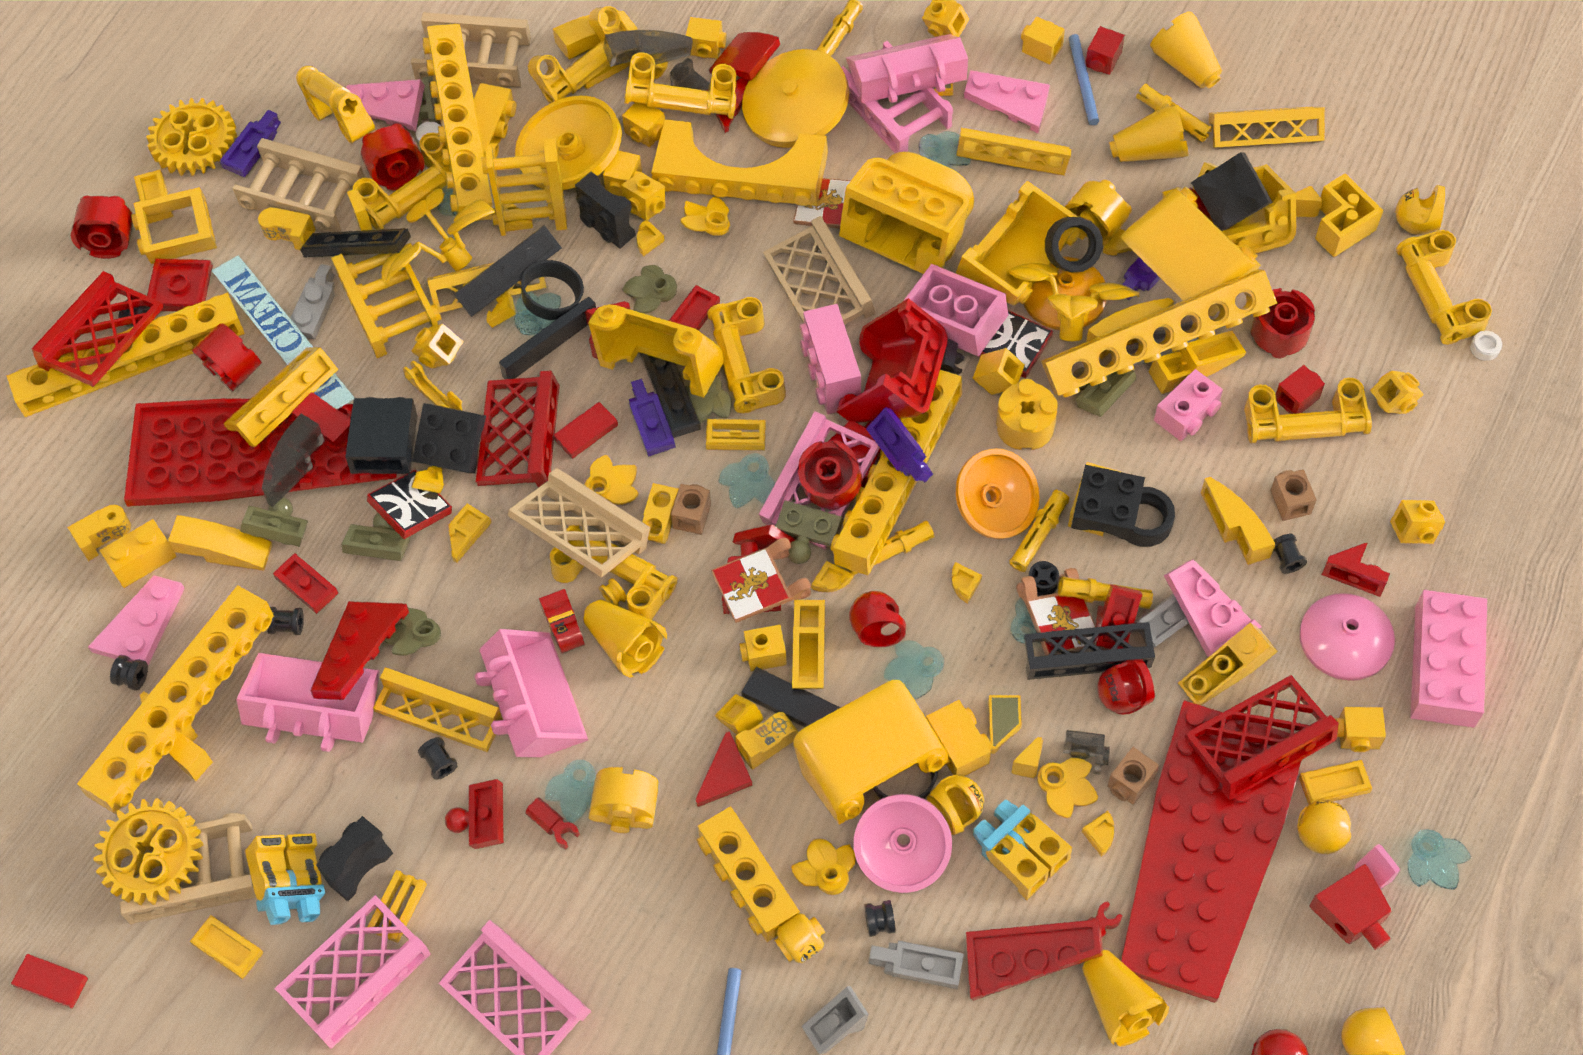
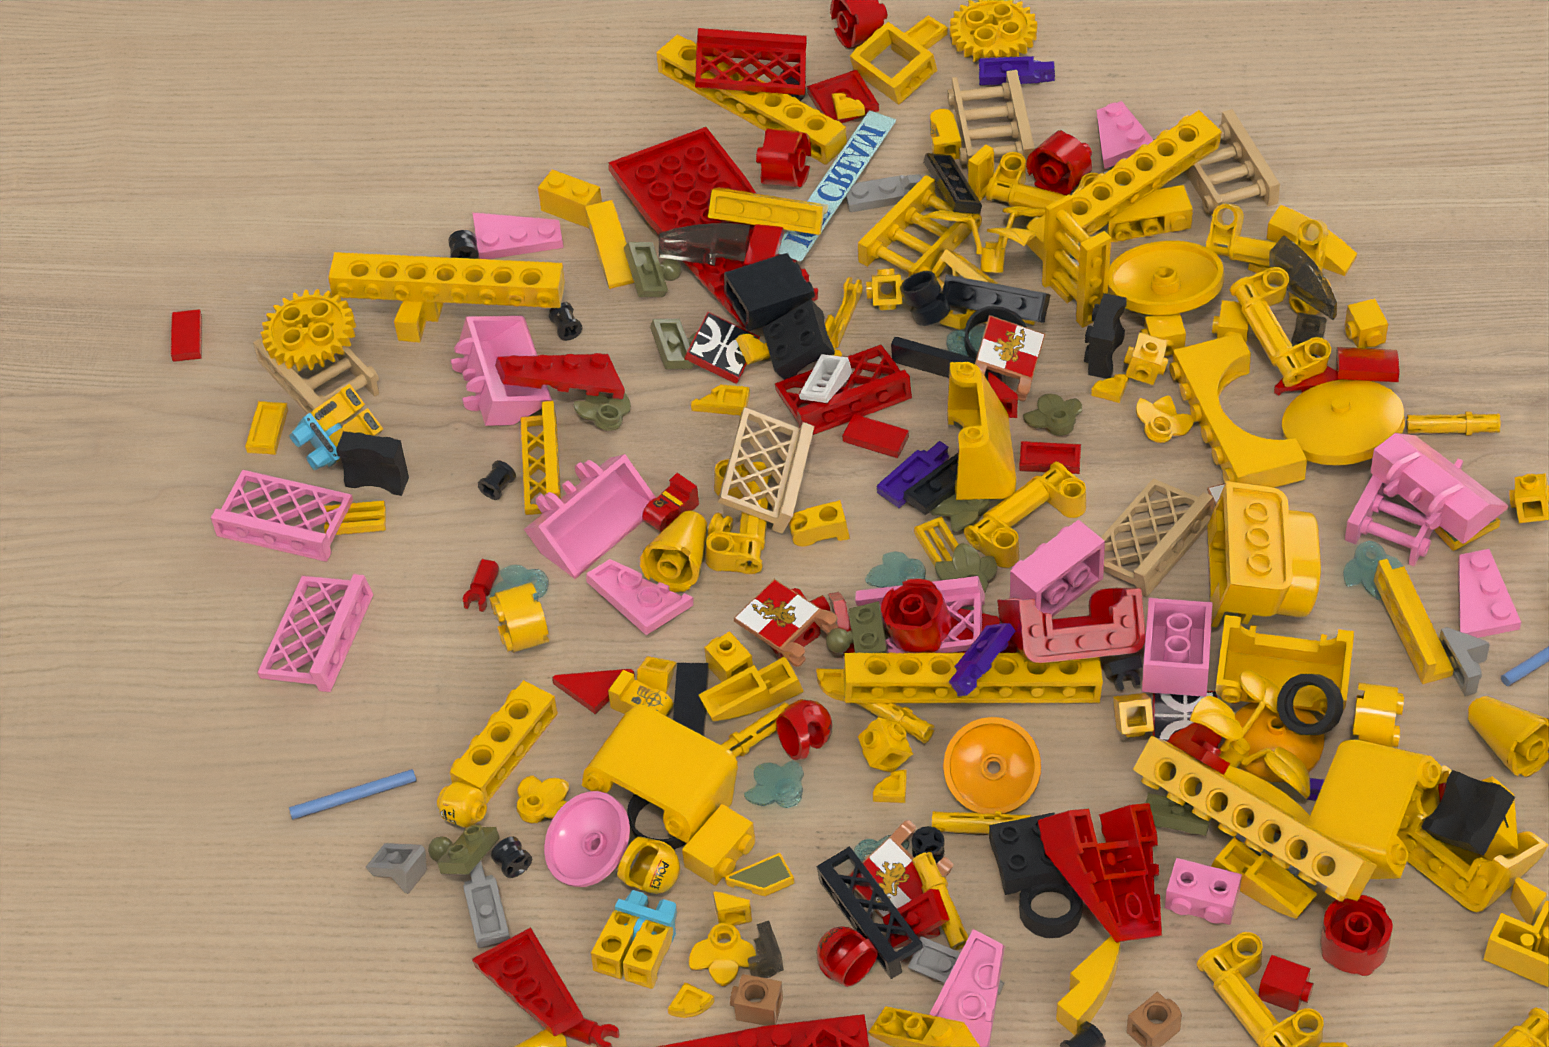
camera: 65 degrees right, 10 degrees down
(99, 529) = (579, 164): yellow leg -> none
(197, 284) = (847, 107): none -> yellow tile
(305, 583) = (608, 317): red plate -> none
(328, 97) = (1082, 89): yellow piece -> none
(471, 320) = (926, 298): none -> black wheel
(483, 817) = (461, 533): red plate -> none
(499, 422) = (828, 373): none -> white slope
(578, 286) = (1010, 351): none -> flag
(614, 480) = (835, 477): yellow plate -> none
(650, 694) = (636, 598): none -> bright pink wing
(691, 519) = (838, 544): medium nougat brick -> none
(776, 424) = (967, 563): none -> olive plate
(855, 955) = (465, 852): none -> olive plate
(857, 676) = (750, 733): none -> yellow pin
(926, 564) = (885, 744): none -> yellow brick
(1026, 415) = (1099, 757): yellow brick -> none
(1055, 340) = (1201, 744): none -> red slope
(1058, 133) = (1464, 654): none -> light grey slope
(1142, 452) = (1110, 876): none -> red wedge

